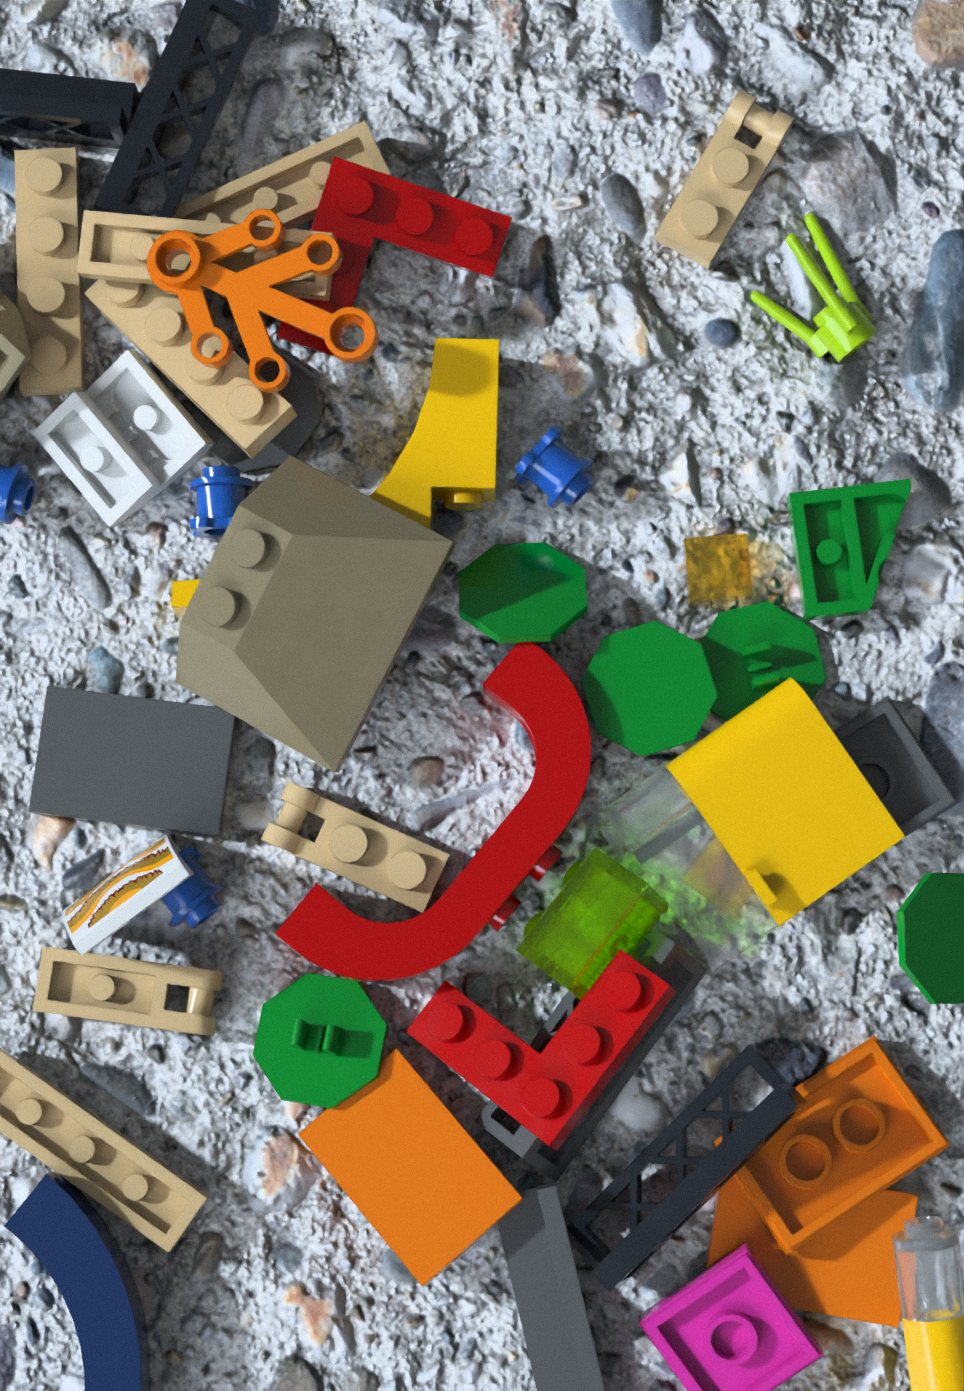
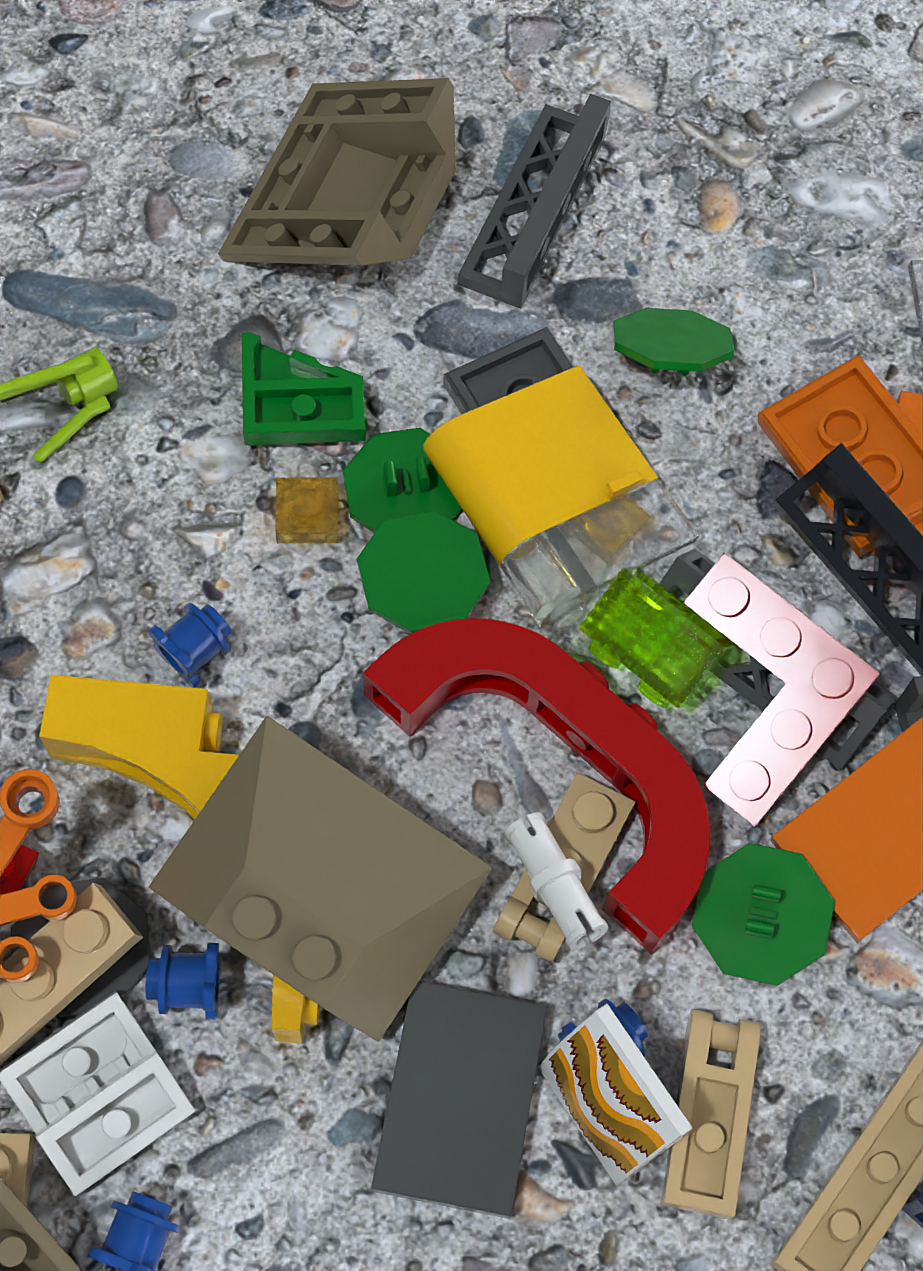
camera: 95 degrees left, 15 degrees down
(325, 832) = (556, 881): none -> white pin
(522, 592) = (317, 677): green piece -> none

